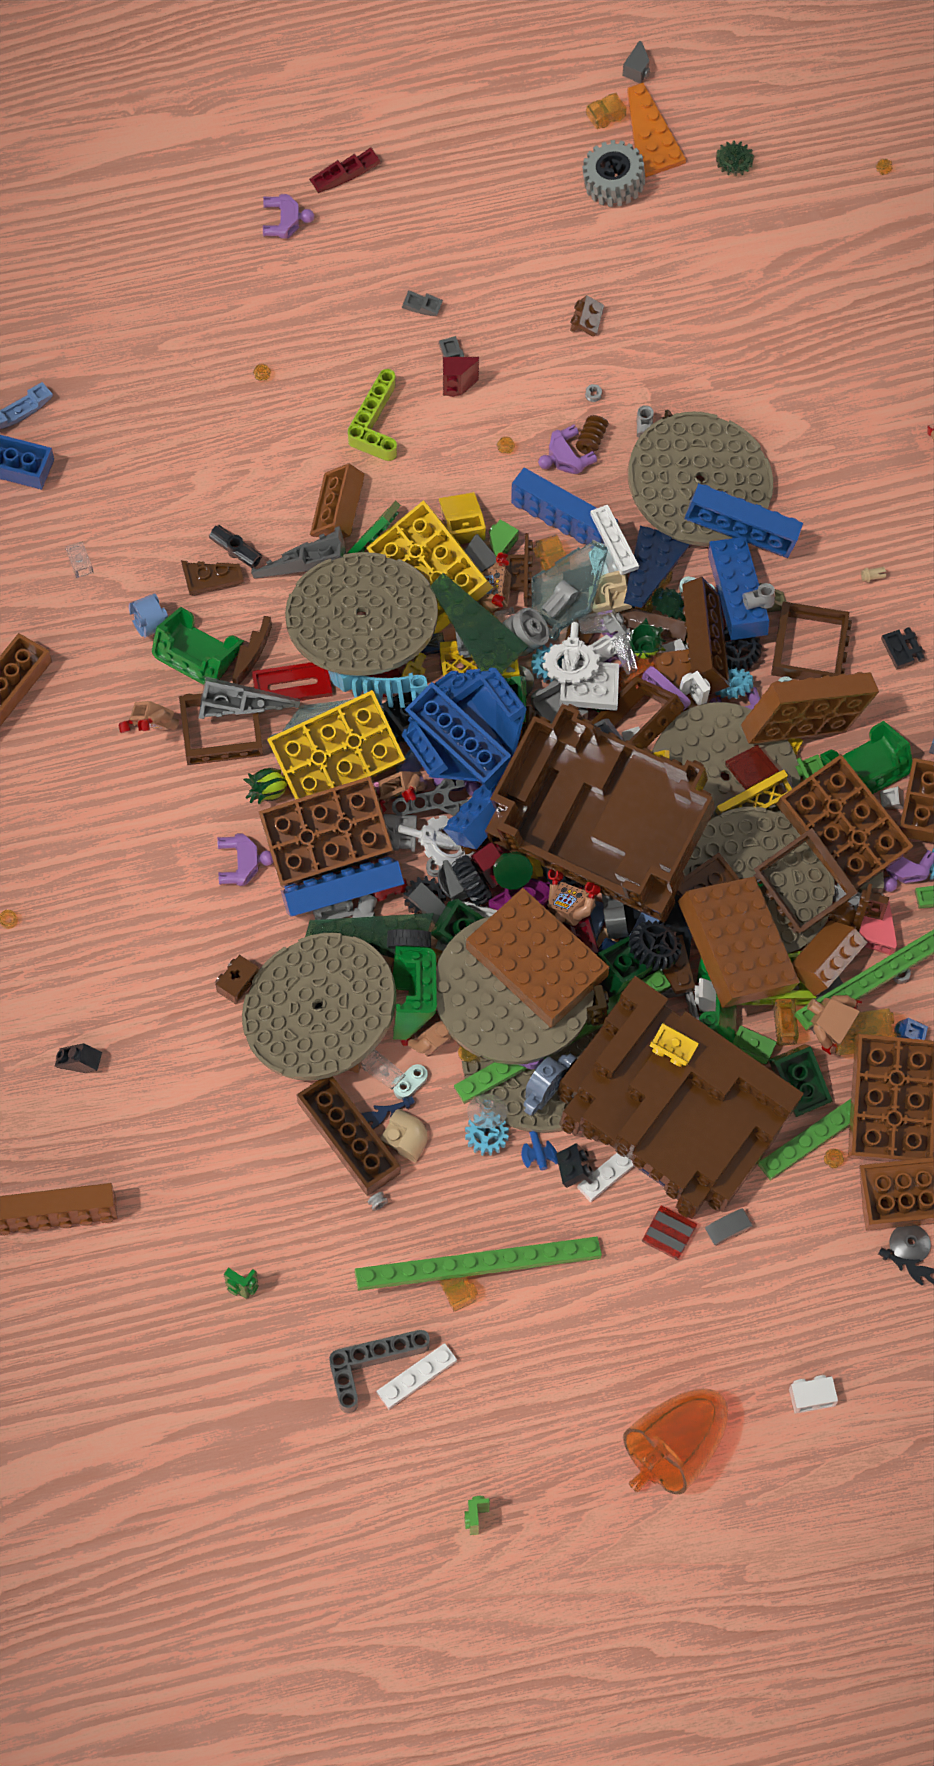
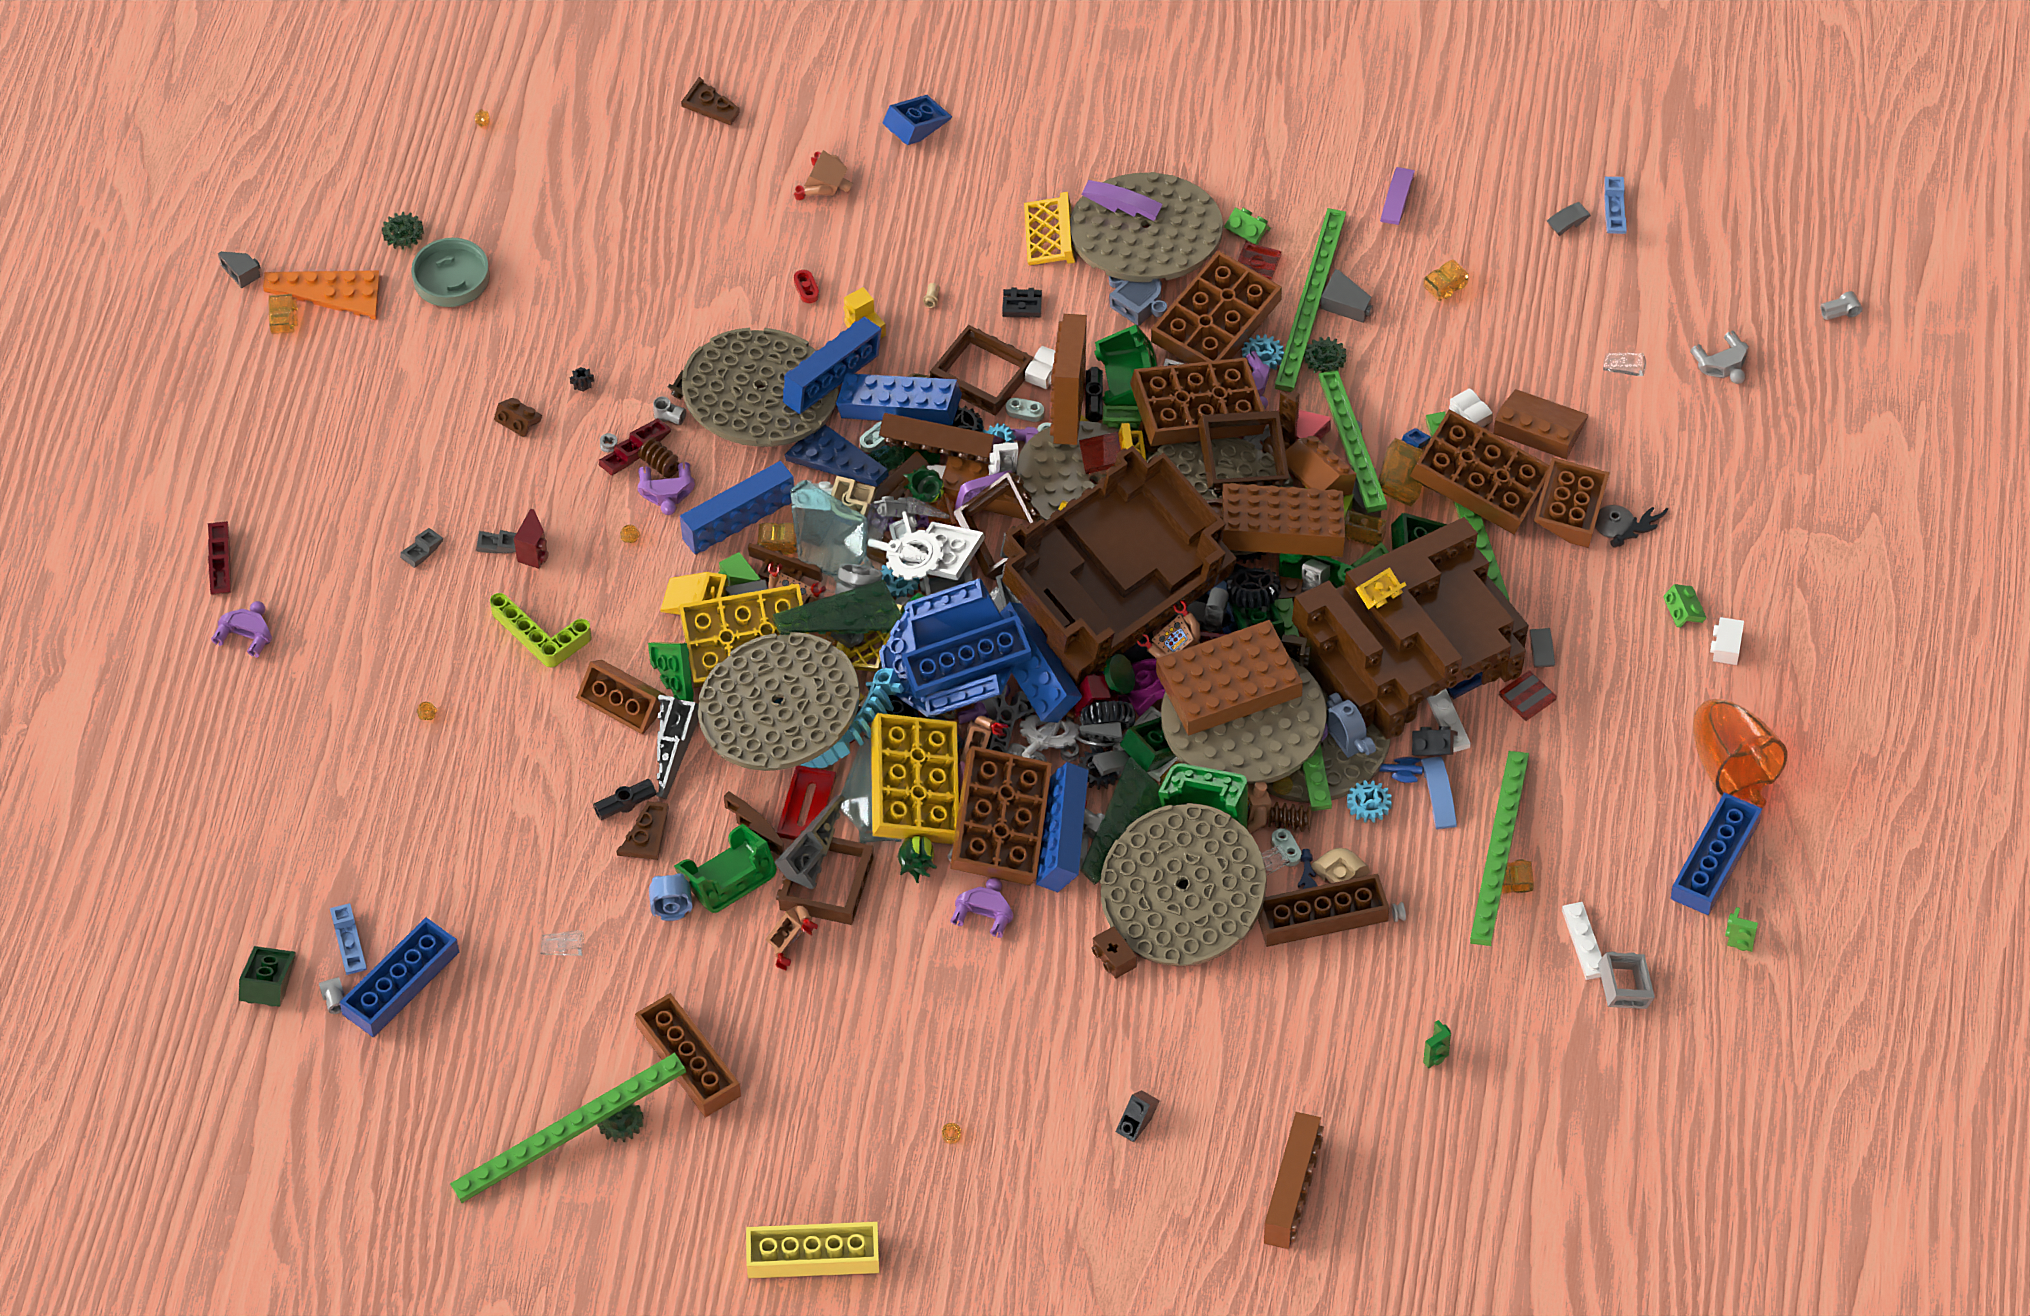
camera: 65 degrees left, 10 degrees down
(361, 1437) = (1626, 998): none -> light grey window
(371, 1359) = (1550, 968): dark grey beam -> none
(408, 938) = (1152, 782): black tyre -> none
(438, 1072) = (1290, 816): none -> reddish brown piece
(487, 1117) = (1349, 789): clear dish -> none
(525, 1190) = (1440, 792): none -> medium blue slope
(557, 1463) = (1716, 853): none -> blue brick
(563, 595) = (834, 540): light grey piece -> none
(582, 408) = (627, 451): none -> dark red slope
(601, 179) = (368, 345): light grey wheel -> none
(614, 539) = (804, 468): white plate -> none
(646, 346) = (581, 379): none -> black gear
(708, 208) = (450, 272): none -> sand green brick
(762, 597) = (932, 374): light grey piece -> none
(817, 529) = (860, 305): none -> yellow brick
(831, 475) = (807, 287): none -> red plate
(833, 1019) = (1391, 481): nougat torso -> none
(833, 1153) = (1510, 541): clear yellow plate -> none
(837, 739) = (1094, 394): none -> black piece
(838, 1340) = (1684, 605): none -> bright green bracket

